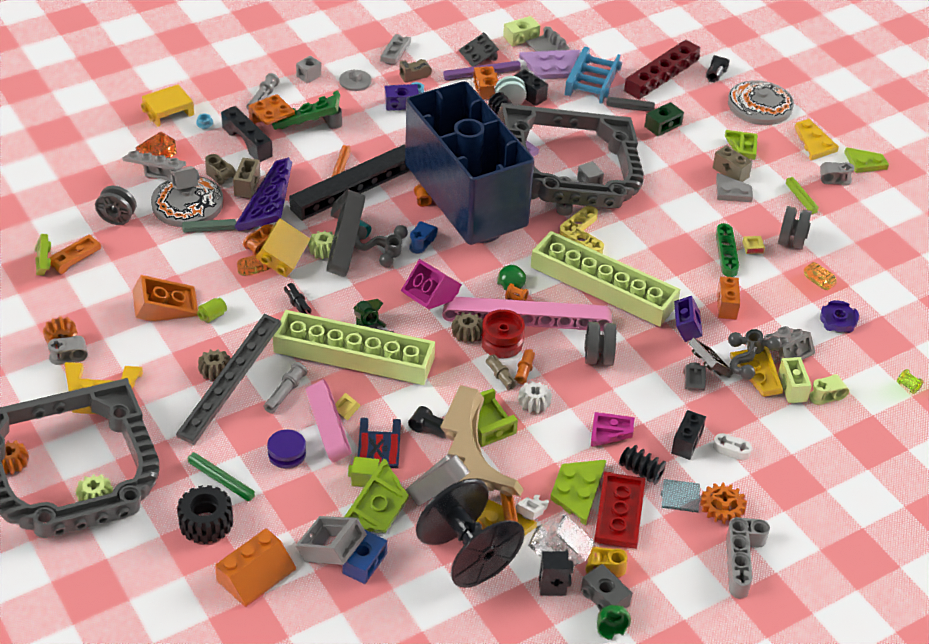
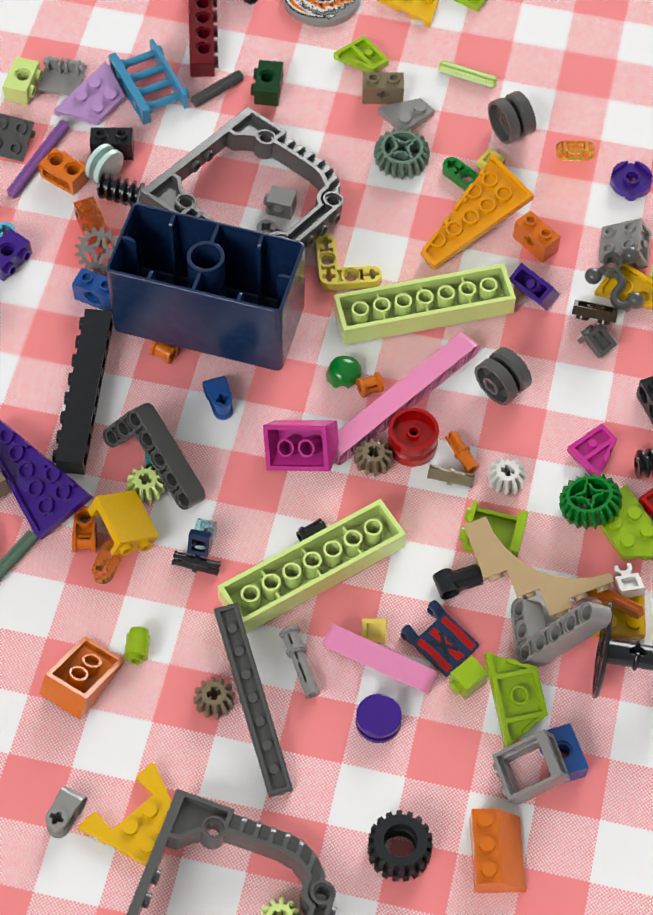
camera: 45 degrees left, 15 degrees up
(59, 329) = (36, 801): orange gear -> none
(221, 476) = (358, 797): green axle -> none
(315, 288) = (202, 535): none -> dark blue leg
(342, 160) = (42, 379): orange axle -> none
(367, 313) = (277, 522): dark green brick -> none
(395, 239) = (218, 448): dark grey piece -> none
(567, 447) = (605, 501): none -> green gear
(699, 202) = (400, 159): none -> sand green gear
(708, 258) = (481, 207): none -> light orange wing
(835, 173) = (470, 26): light grey piece -> none

